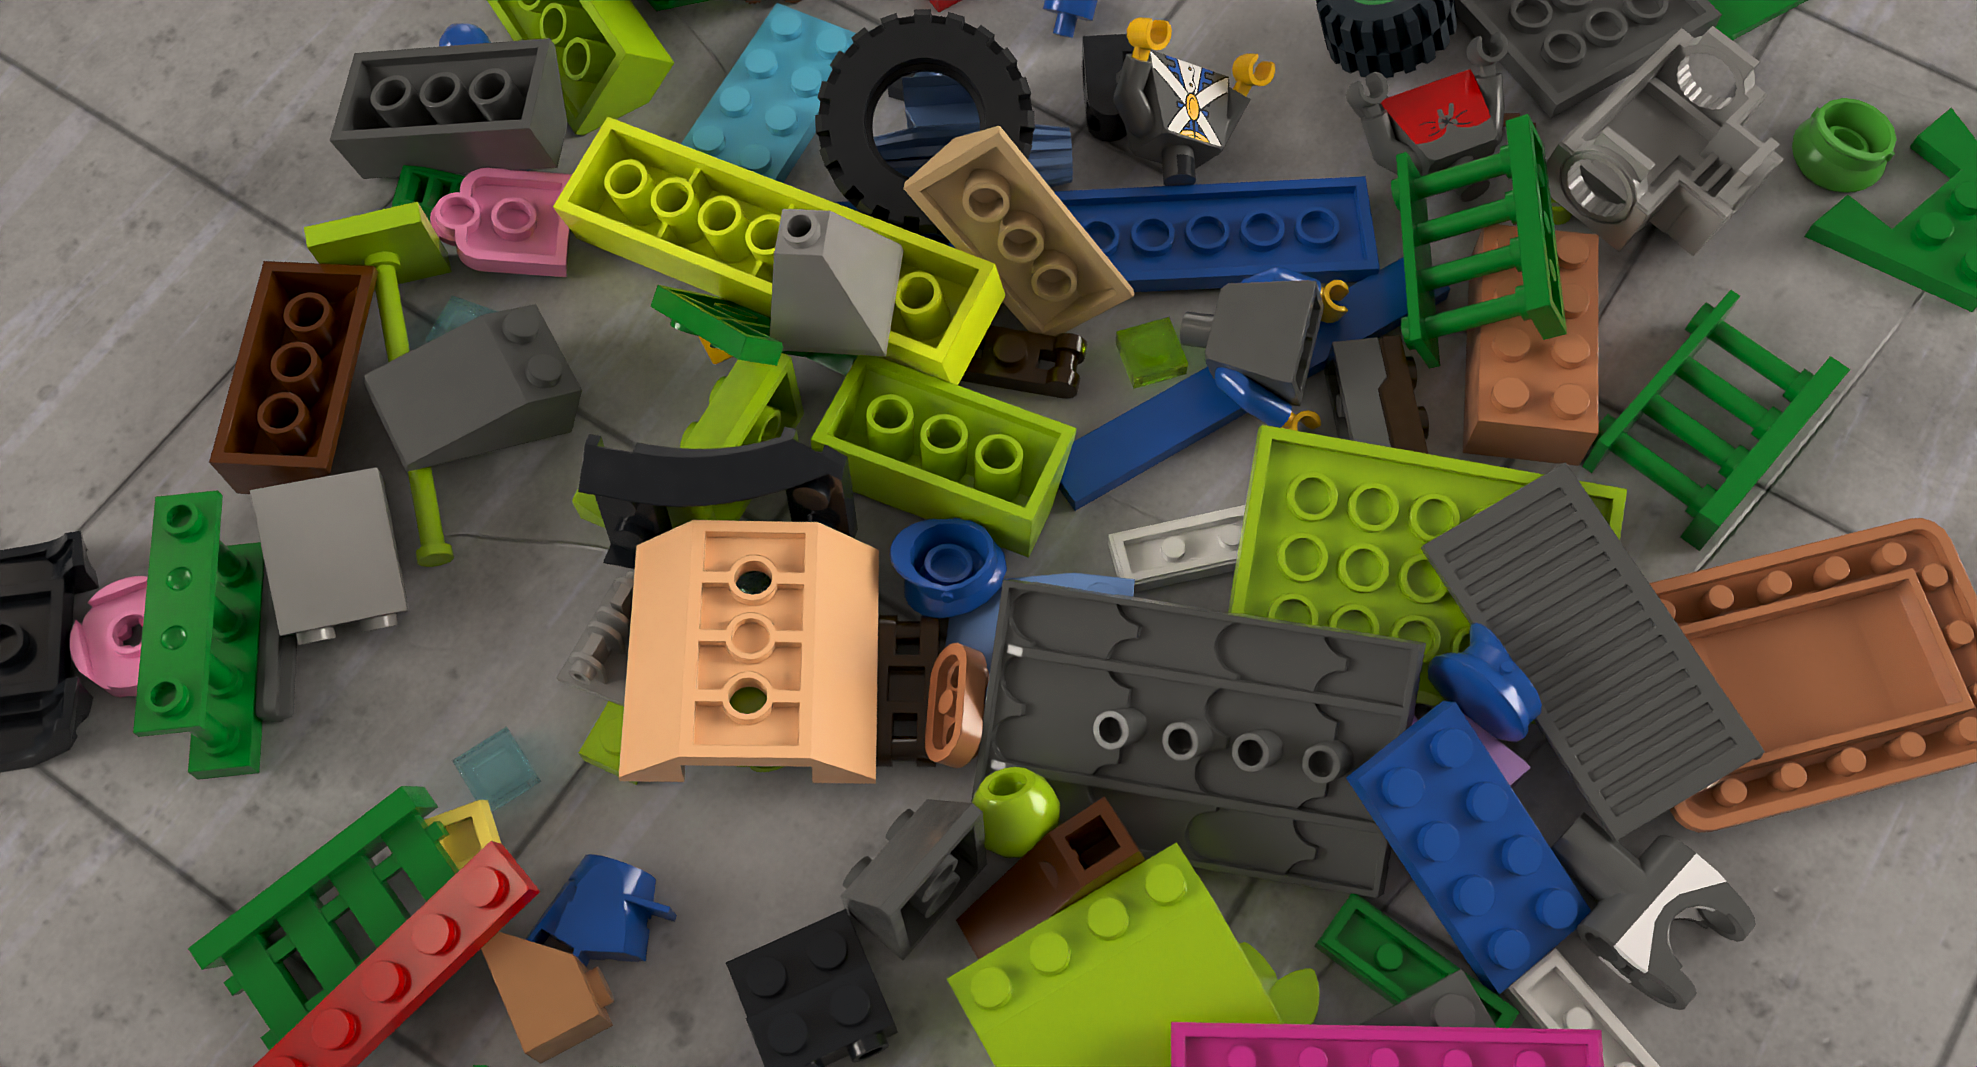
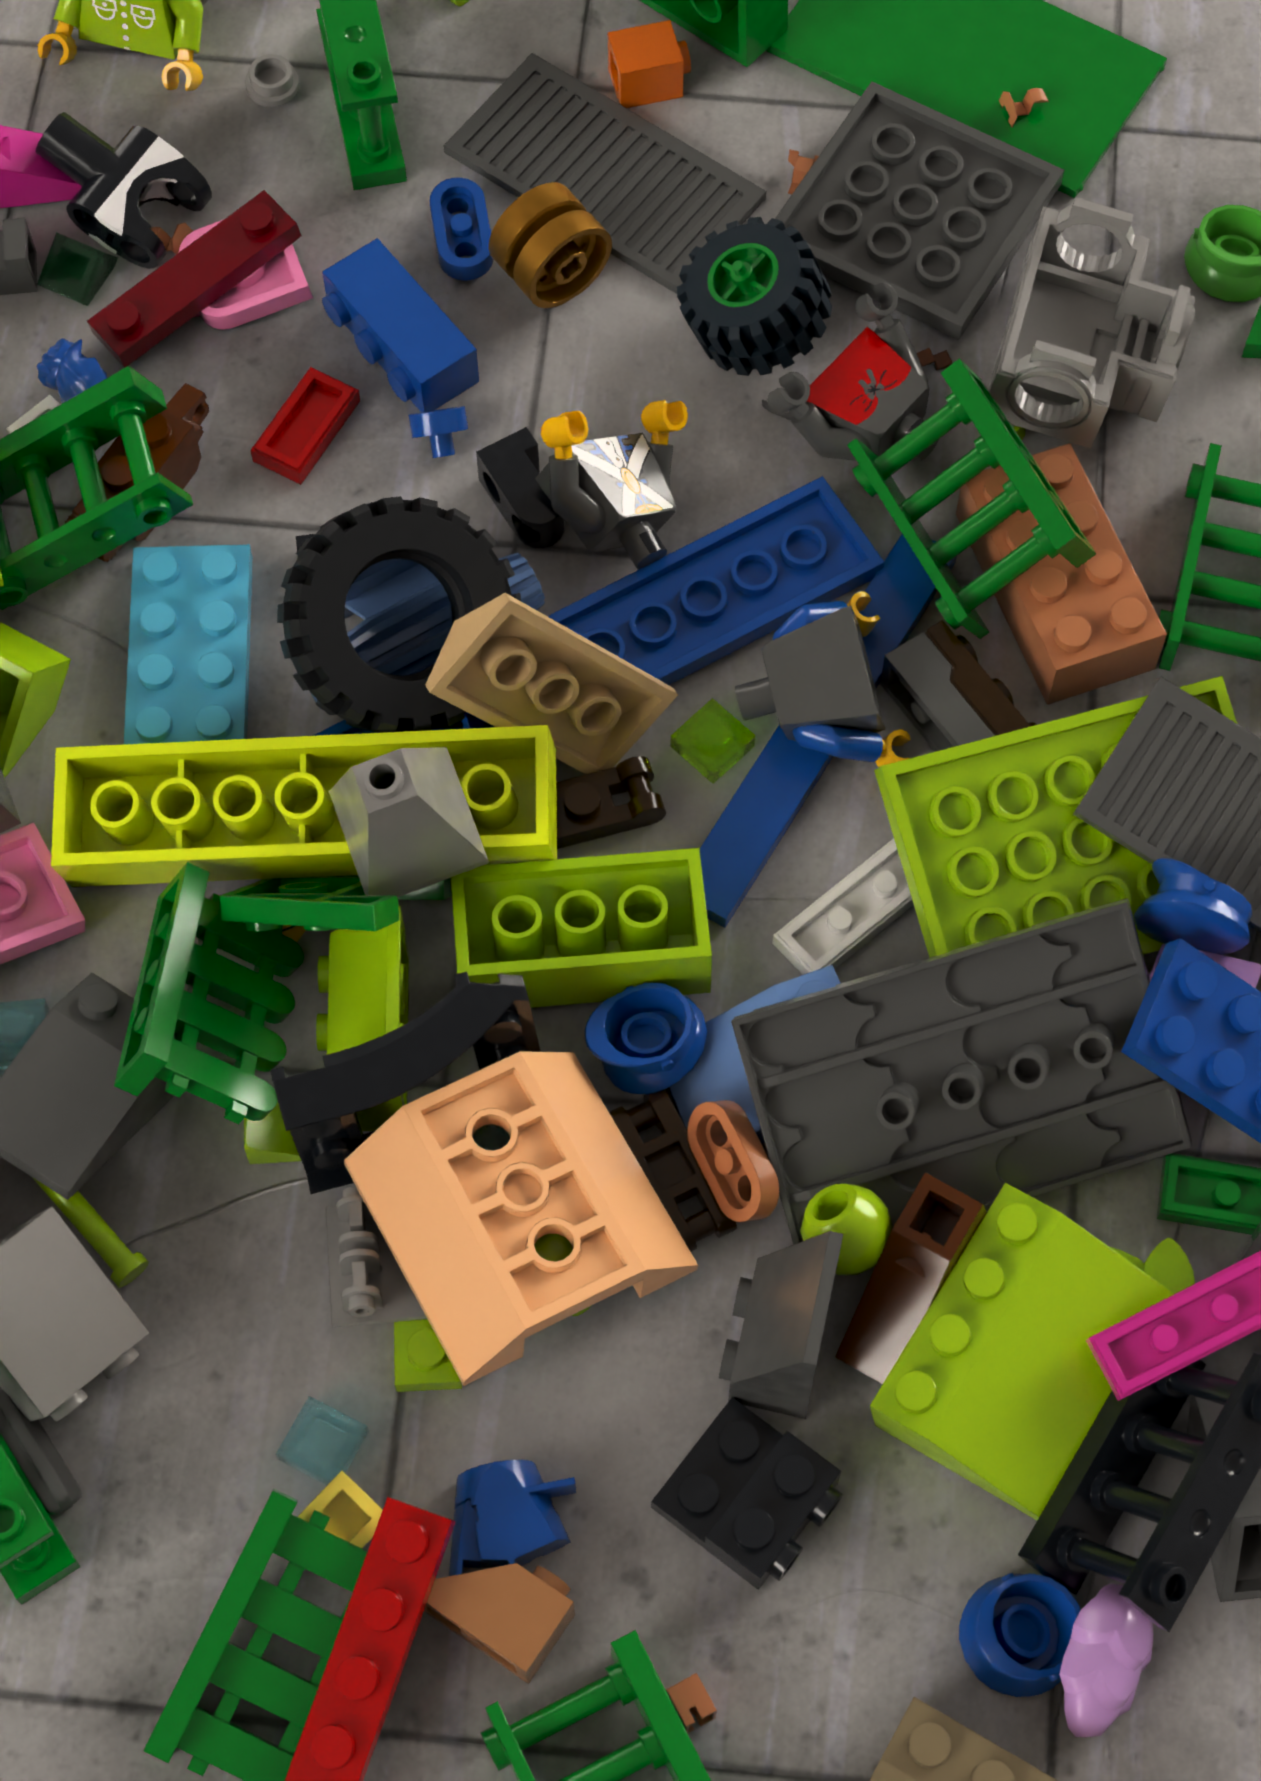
camera: 30 degrees left, 0 degrees up
(586, 377) = (165, 1007): none -> green fence

